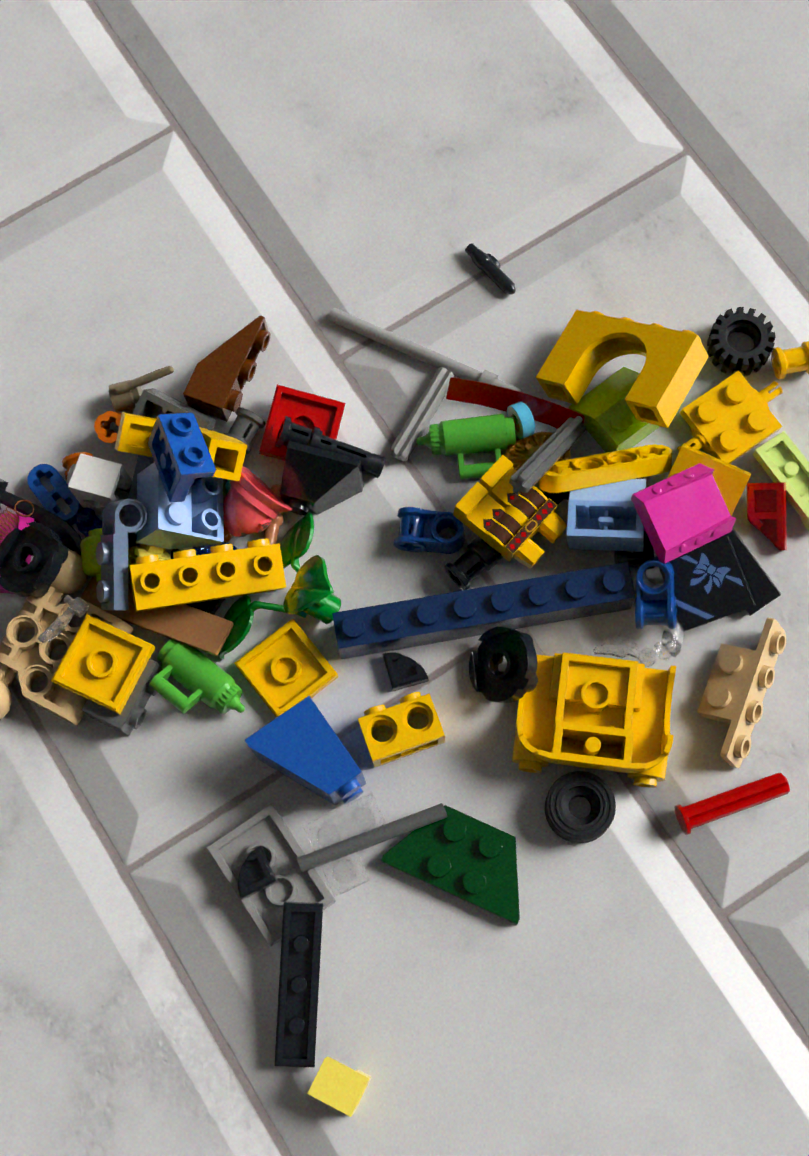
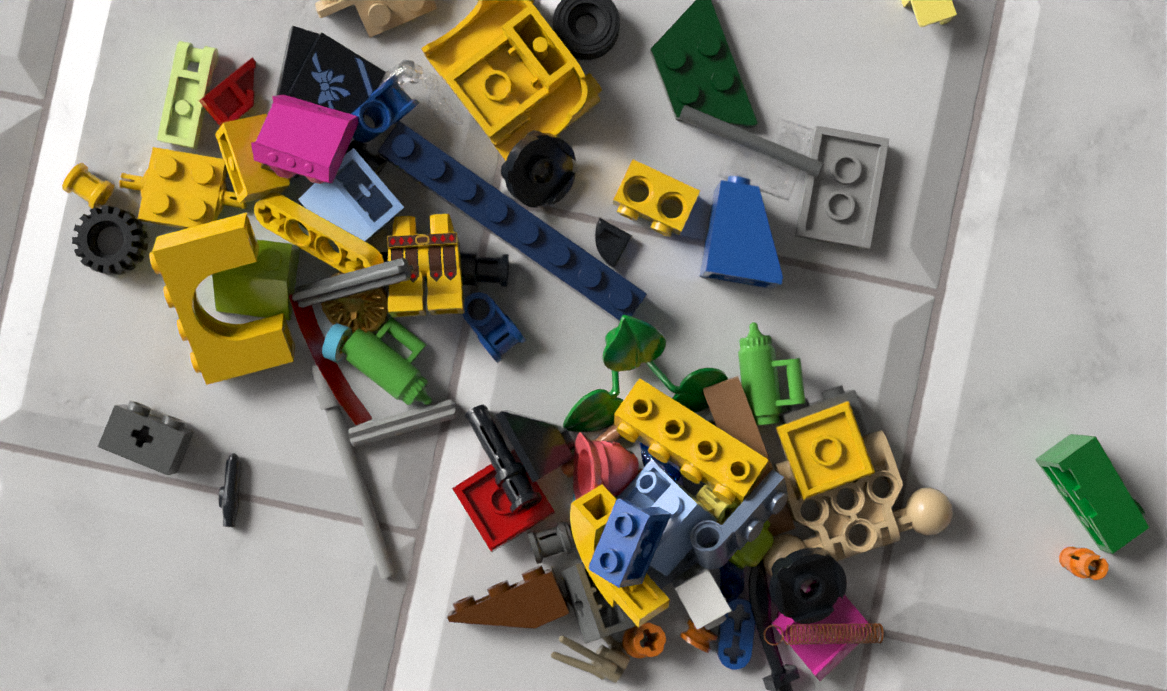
camera: 145 degrees left, 15 degrees up
(76, 606) = (805, 512): clear piece -> none
(255, 874) = (854, 194): black tile -> none
(286, 668) = (694, 324): yellow tile -> none
(298, 984) = (892, 95): black tile -> none
(579, 246) = (125, 437): none -> dark grey brick

